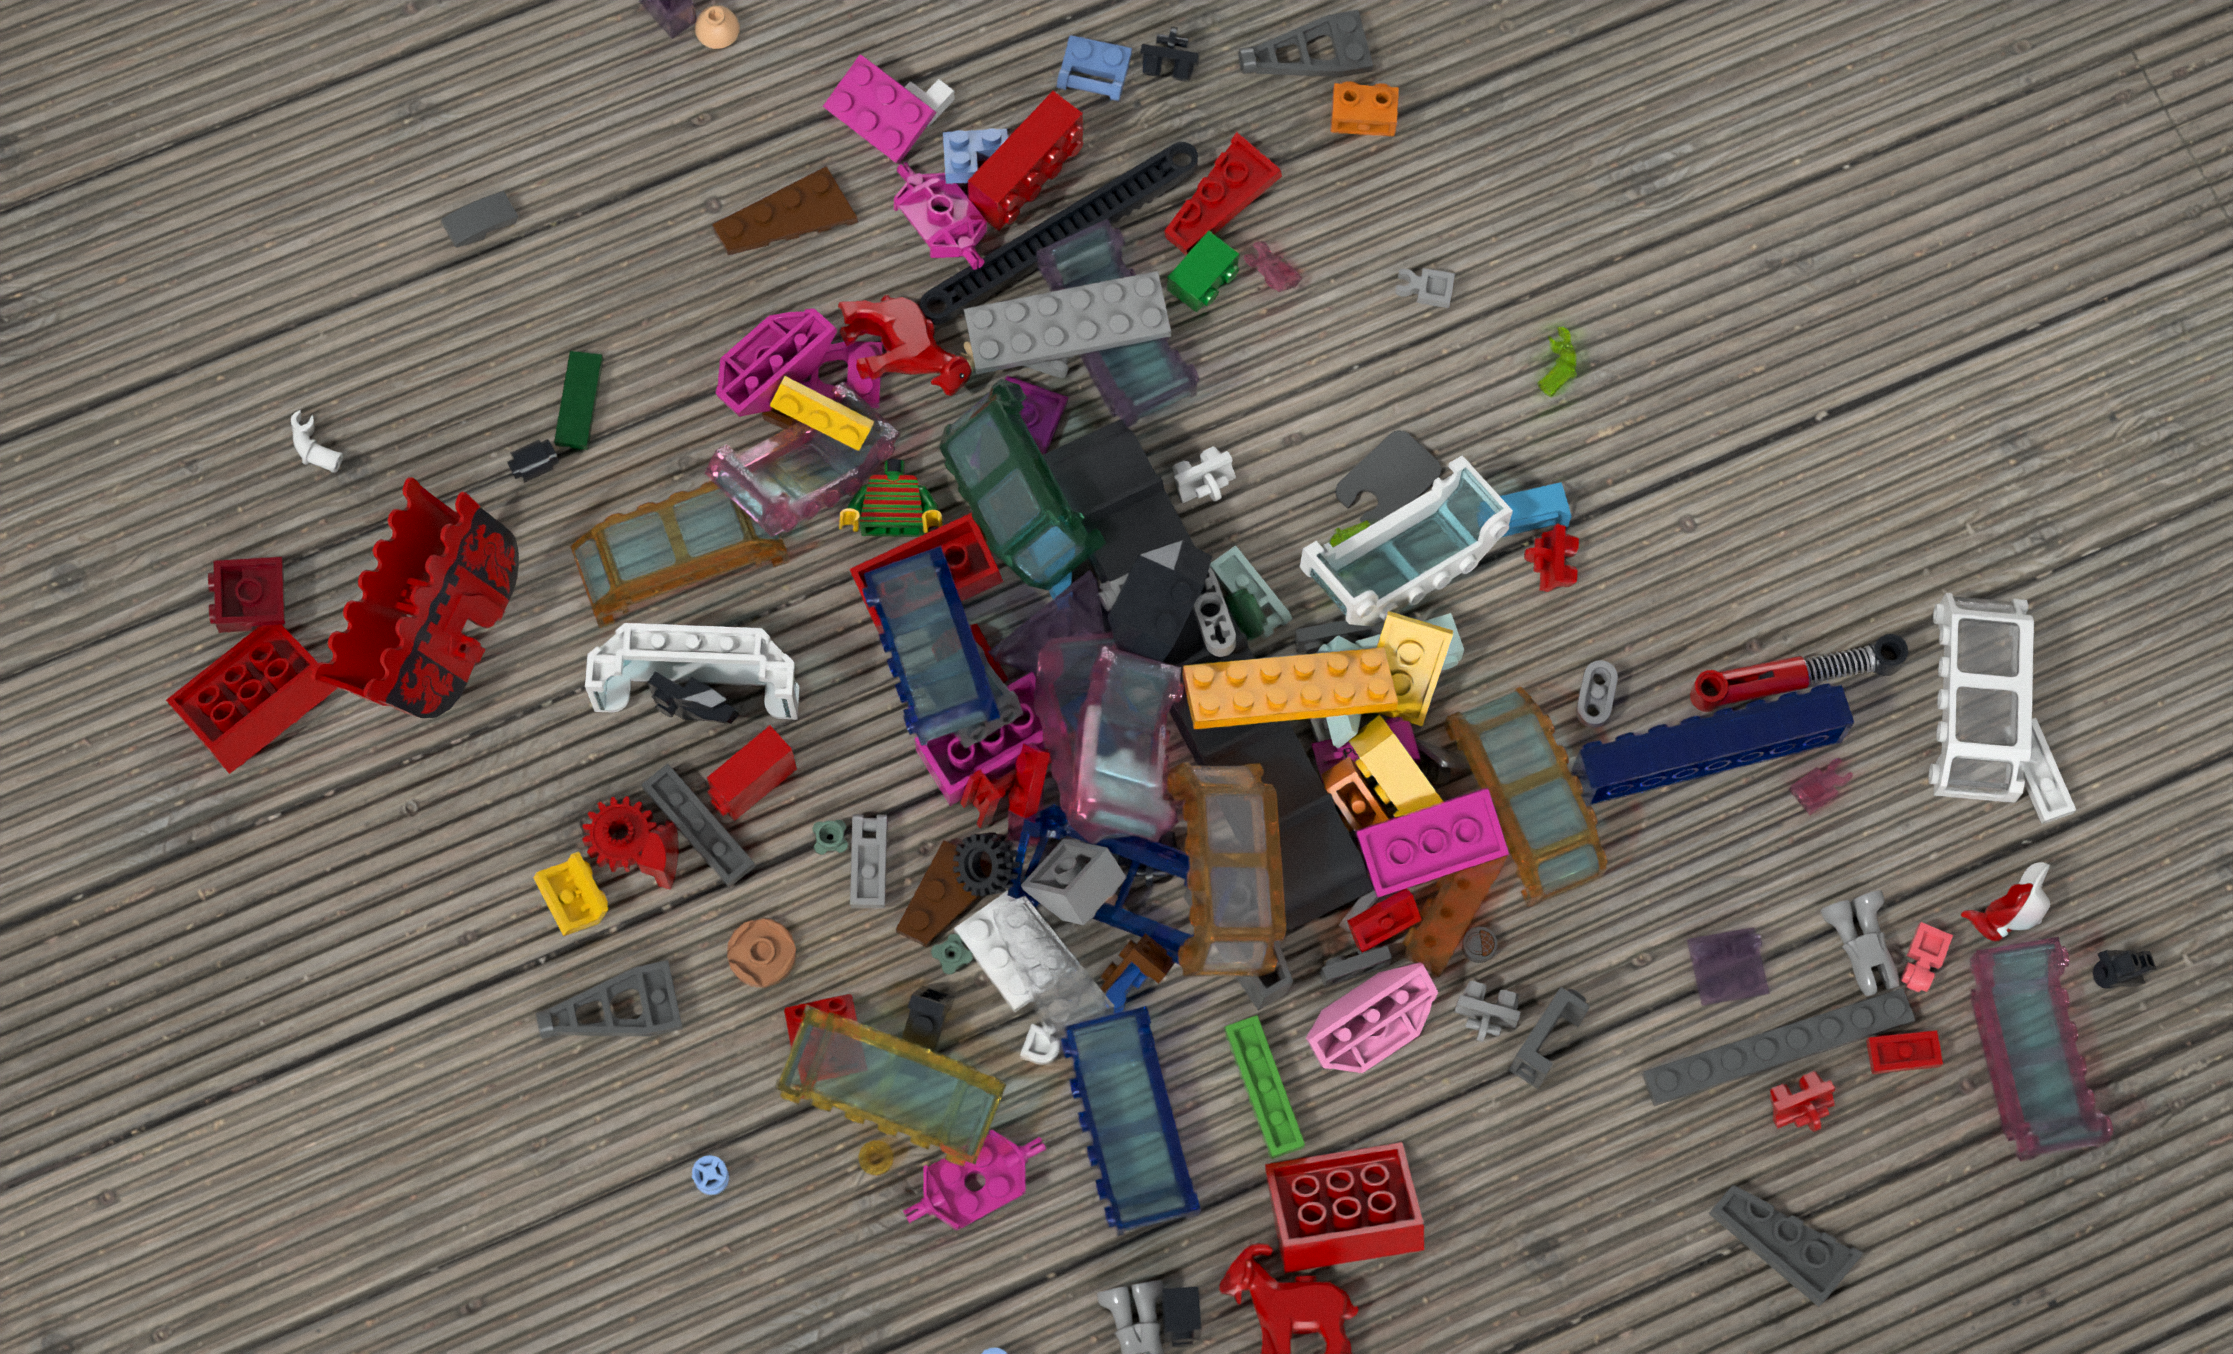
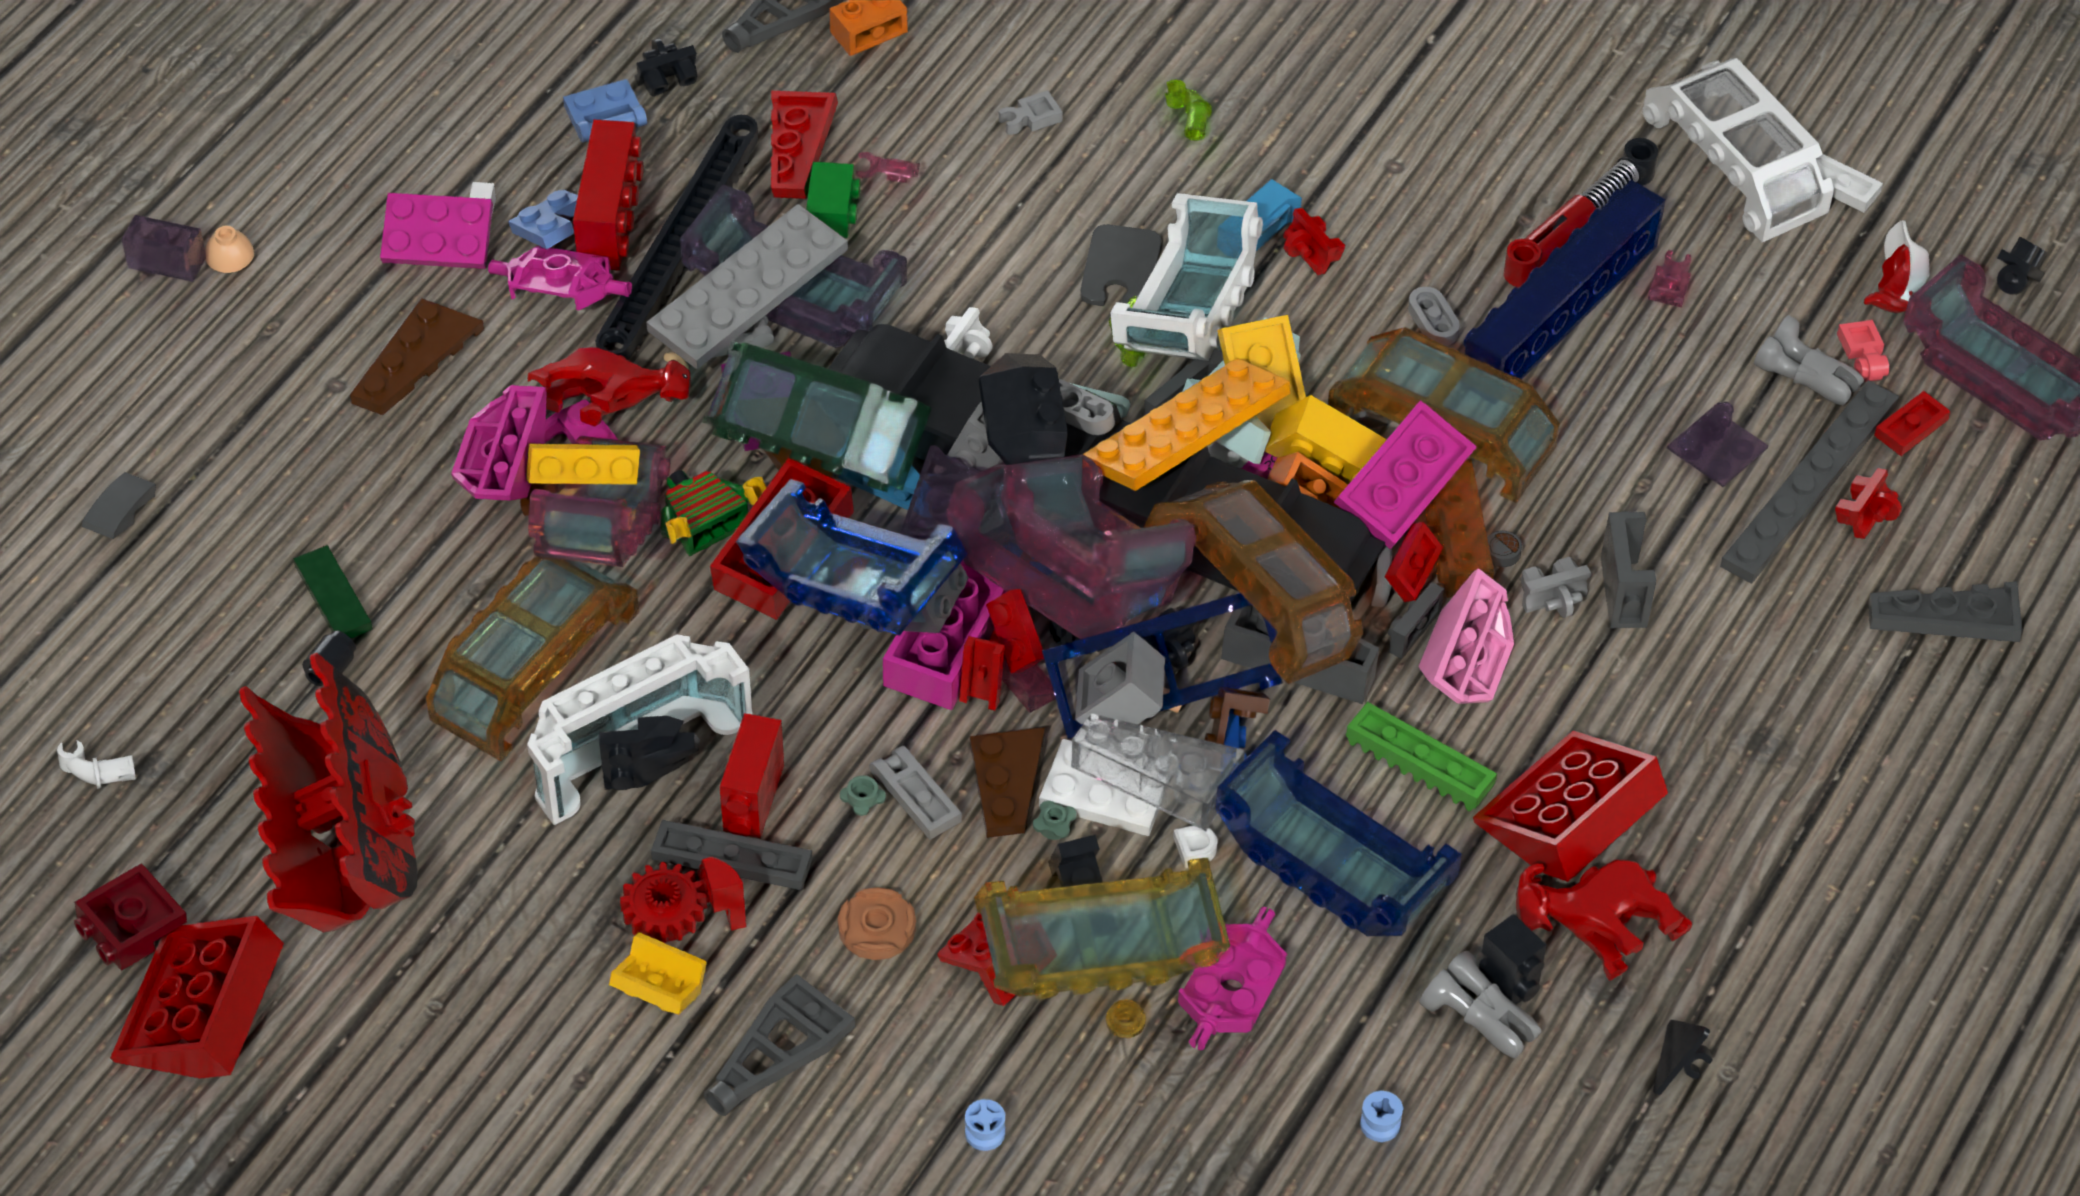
camera: 35 degrees left, 20 degrees down
(1001, 859) = (1009, 717): black tyre -> none

